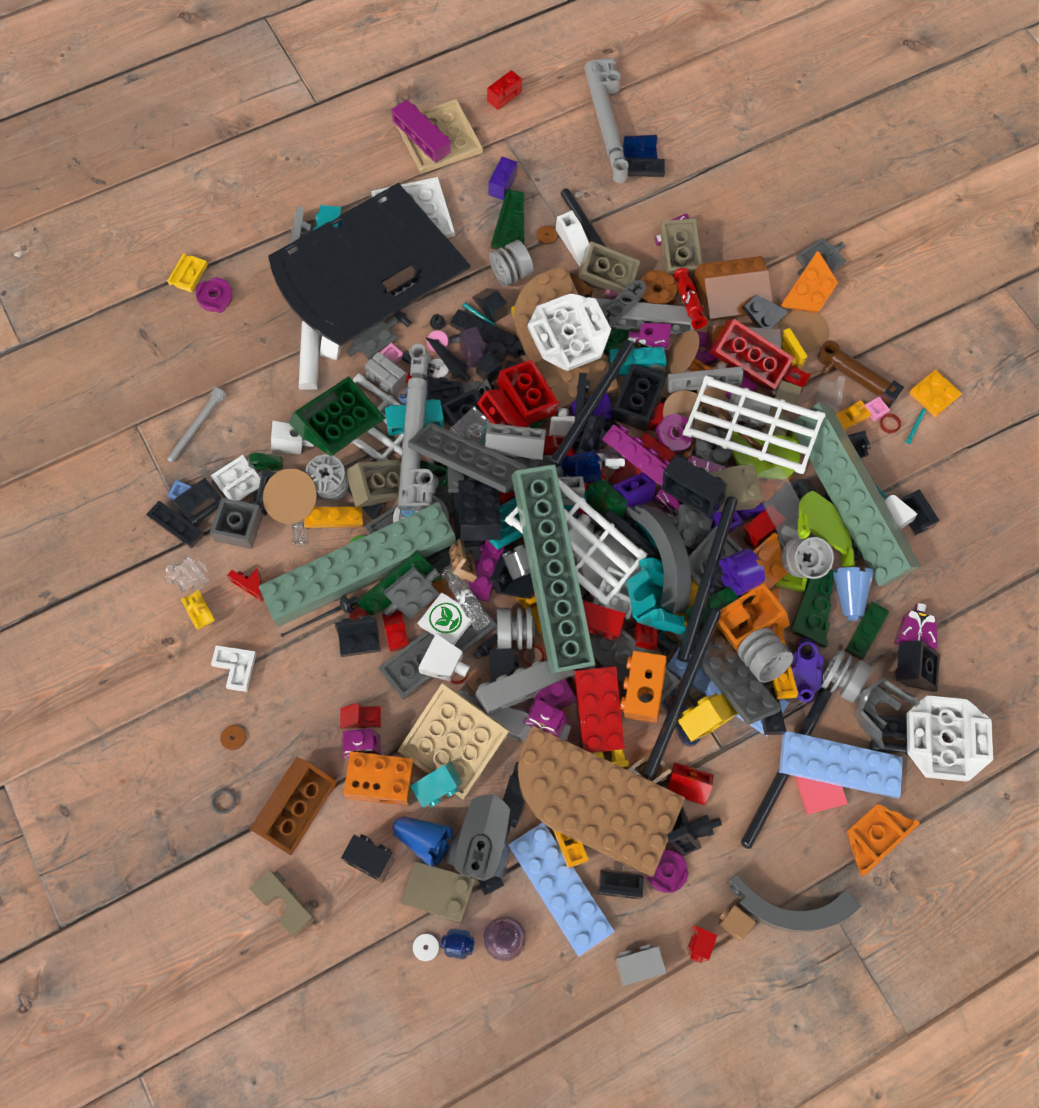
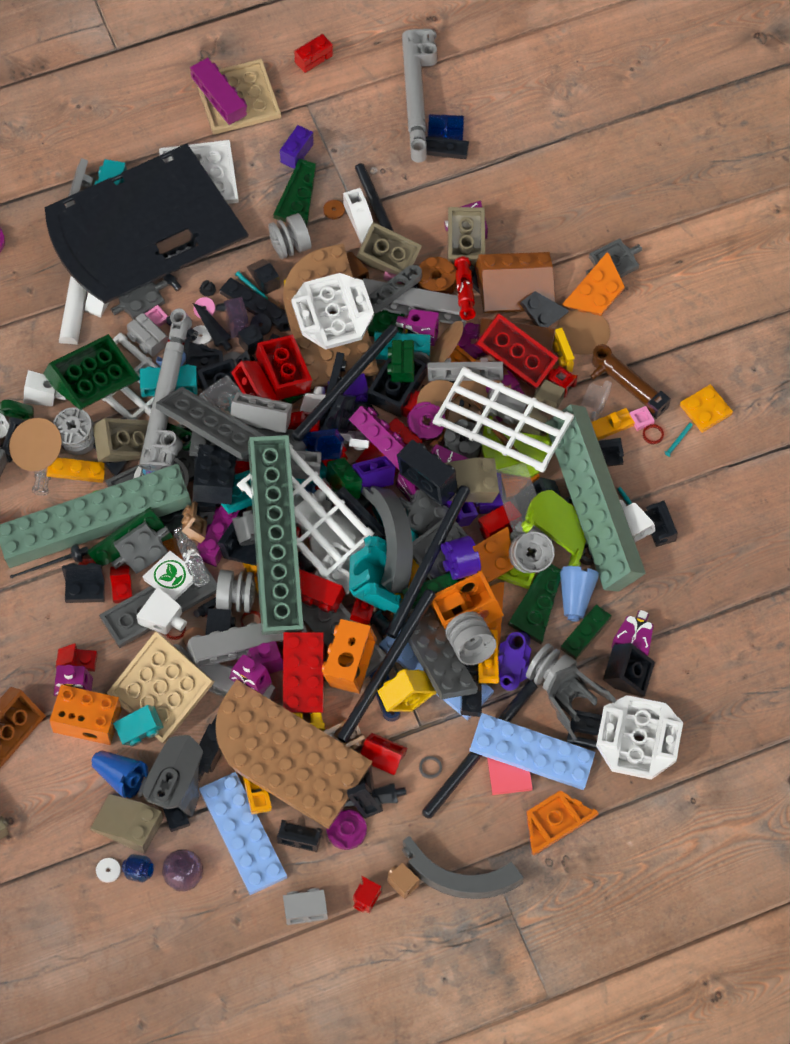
camera: 10 degrees right, 5 degrees down
(368, 858) = (65, 782): black brick -> none
(644, 375) = (402, 361): none -> dark green brick
(741, 782) = (430, 758): none -> flat silver piece

